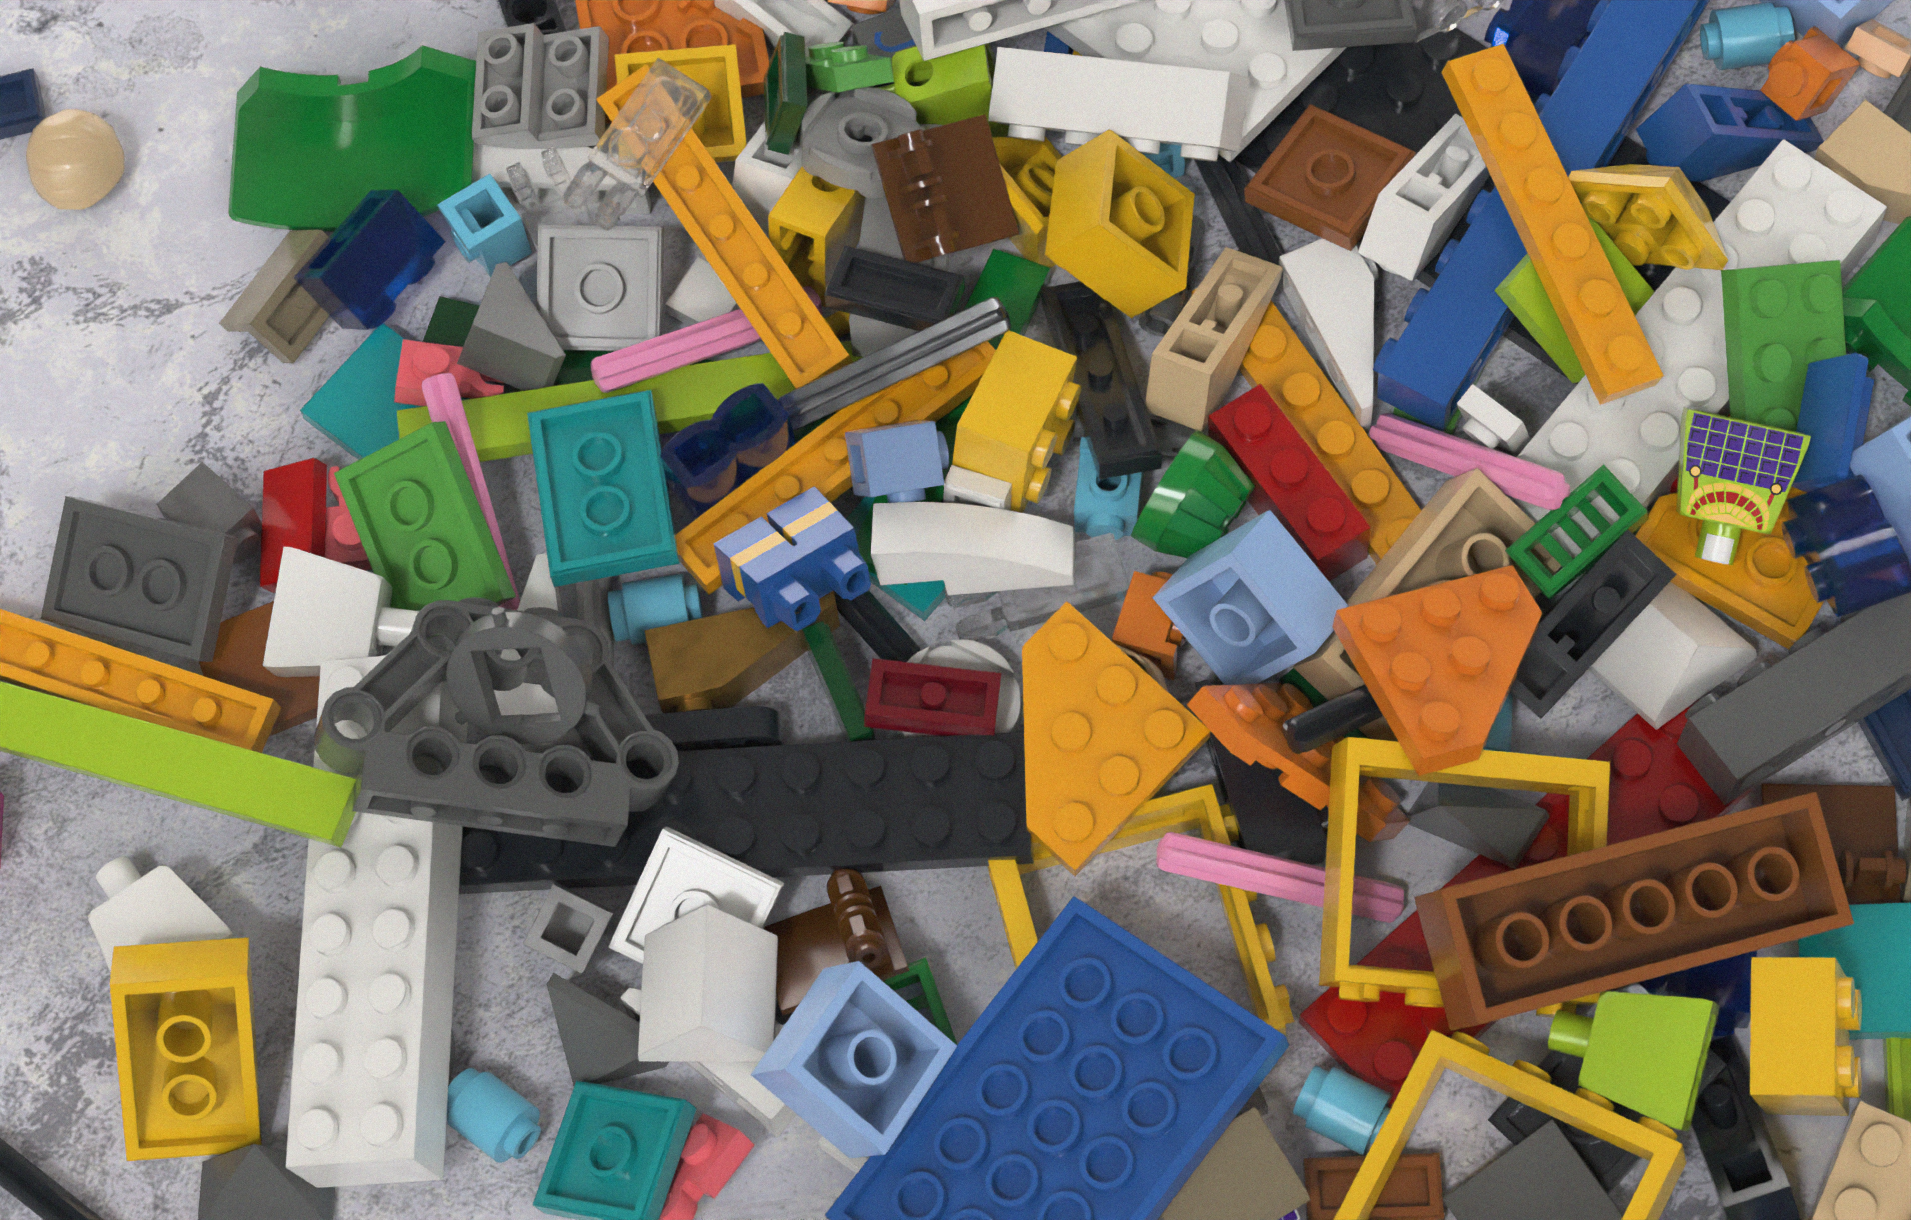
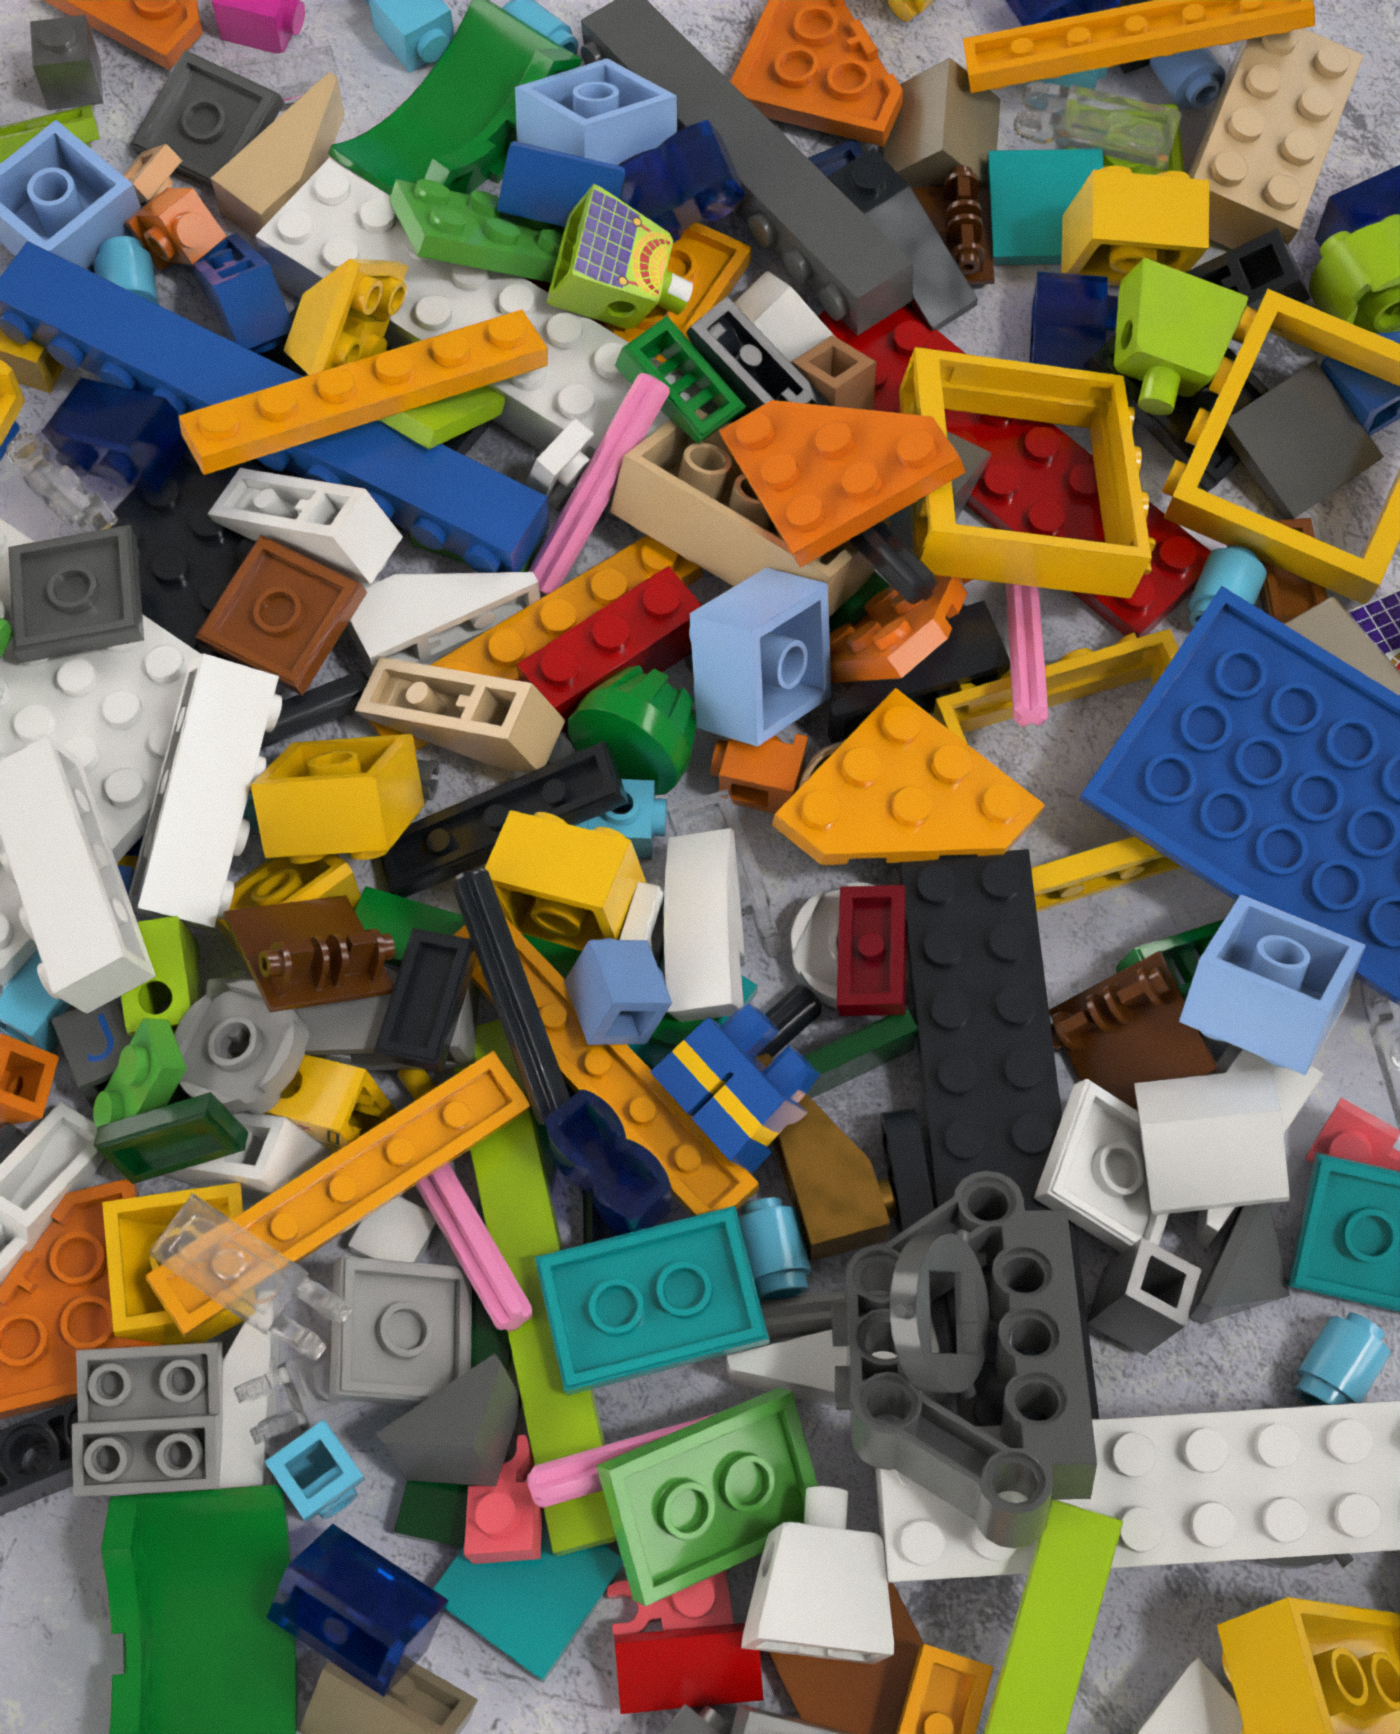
camera: 100 degrees left, 0 degrees up
(1599, 709) = (839, 373): none -> medium nougat brick
(1633, 911) = (1065, 326): dark orange brick -> none
(1838, 762) = (889, 202): none -> black slope

